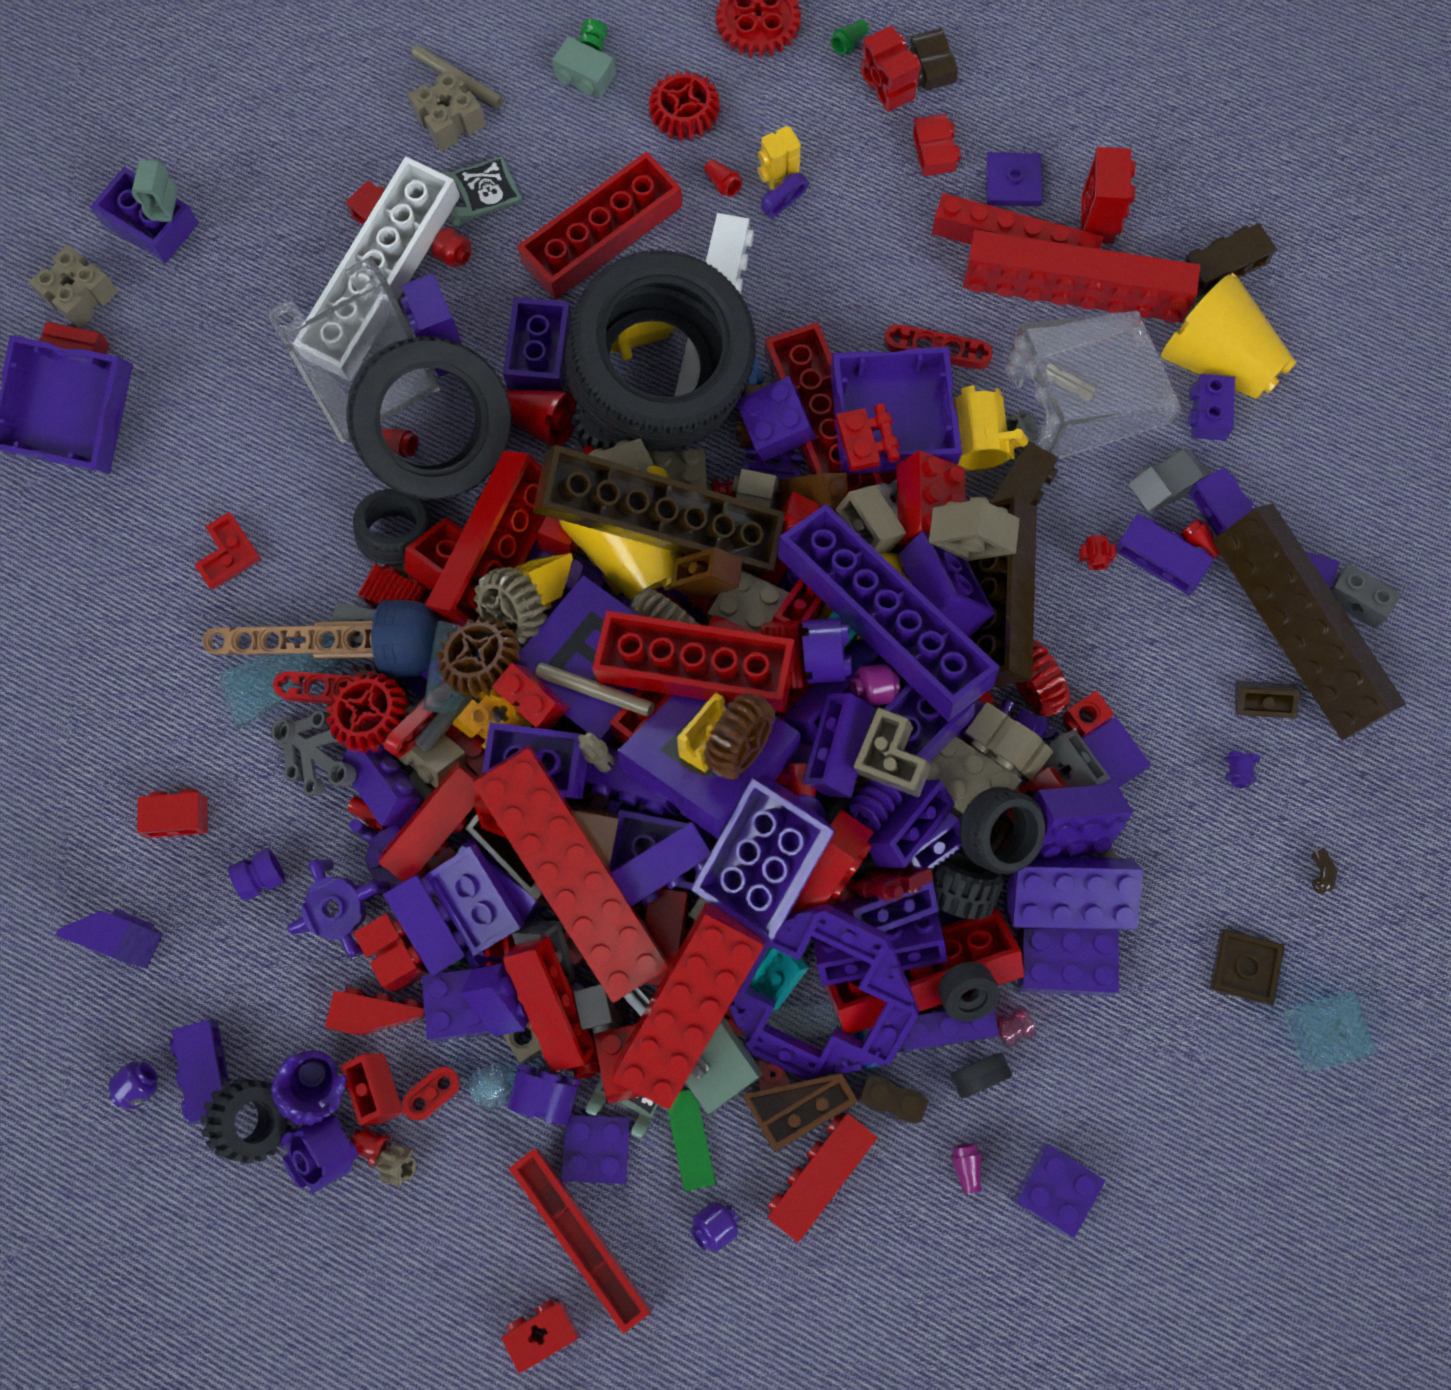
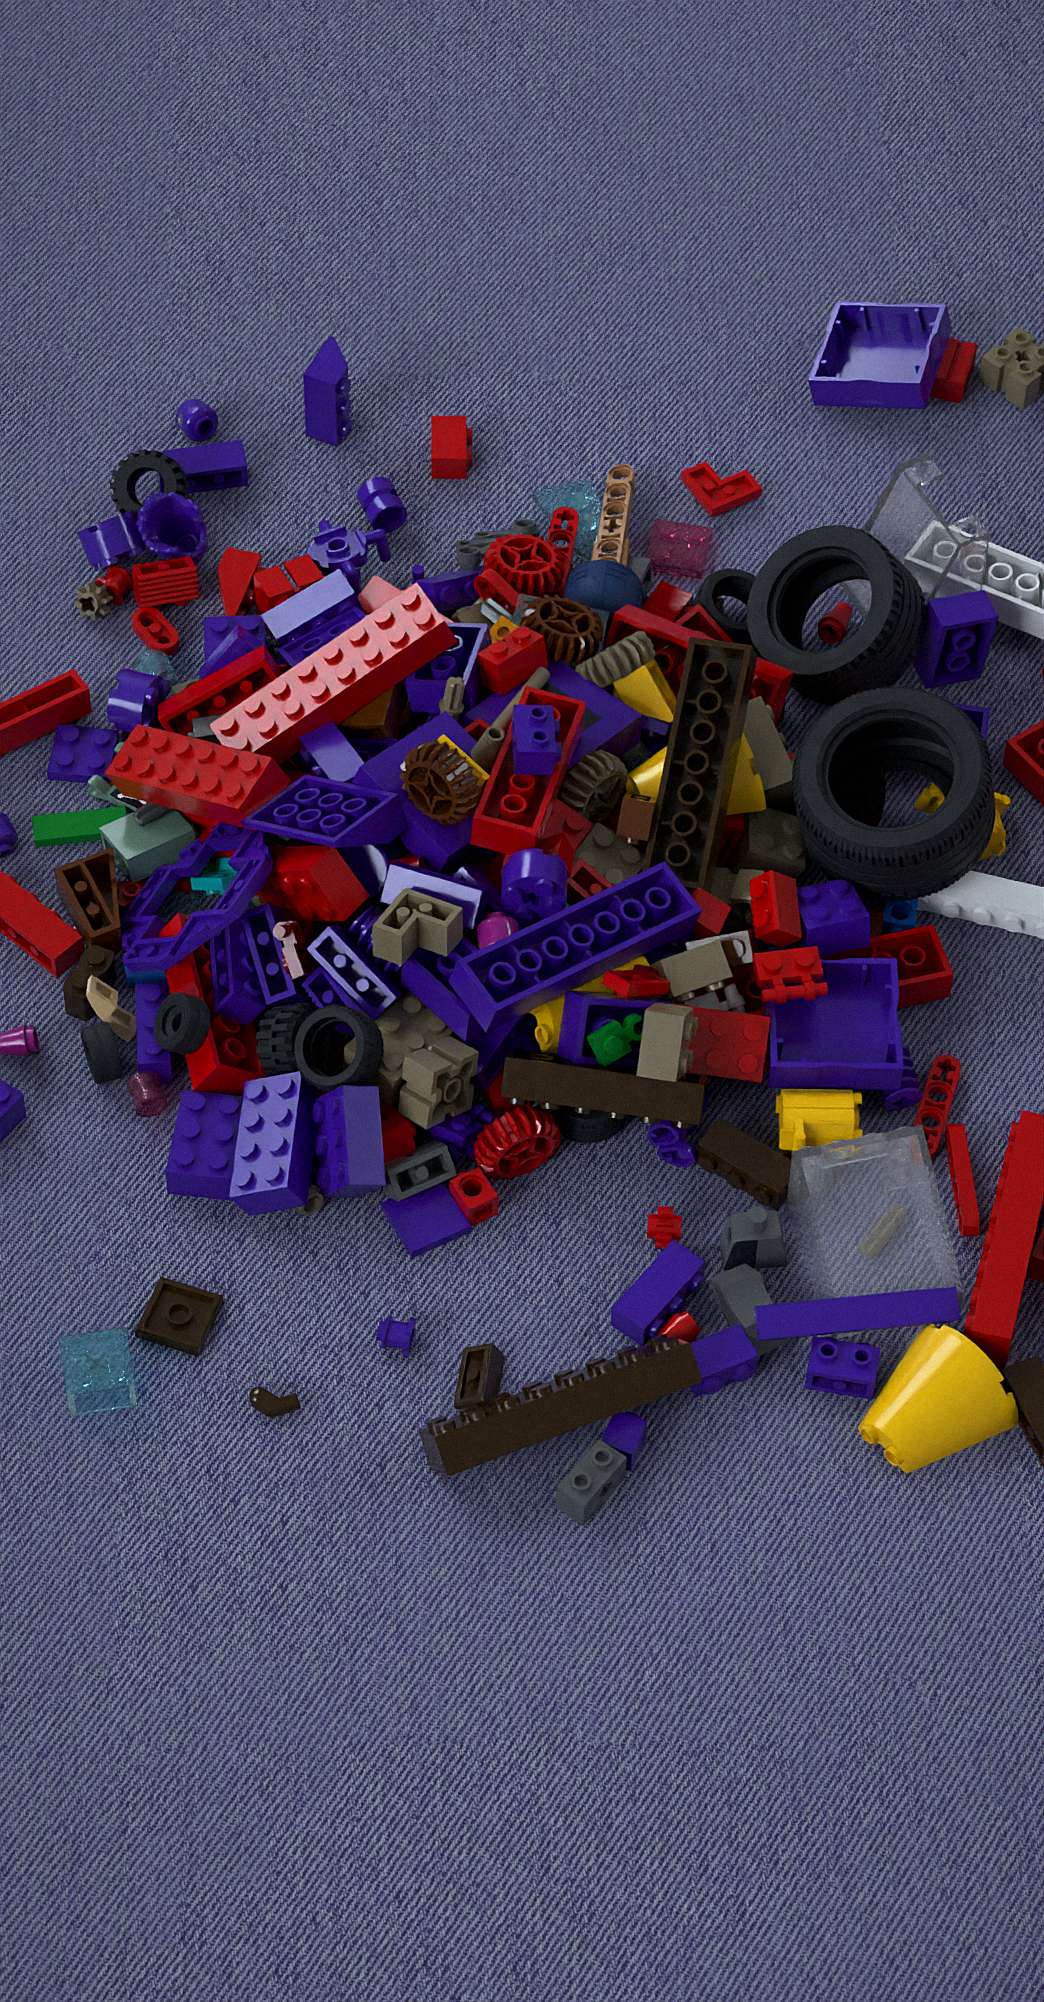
camera: 90 degrees right, 20 degrees down
(302, 587) = (679, 548): none -> clear pink plate
(669, 702) = (488, 748): none -> dark tan cone
(679, 647) = (534, 739): none -> dark purple brick
(787, 455) = (775, 908): none -> red brick
(912, 558) = (640, 981): none -> red hinge
(934, 1071) = (104, 1002): none -> tan slope
(971, 577) = (612, 1039): none -> green plate
(1006, 321) = (962, 1180): none -> red beam
(1104, 473) = (753, 1239): none -> dark grey torso
(1178, 390) = (856, 1313): none -> dark purple tile

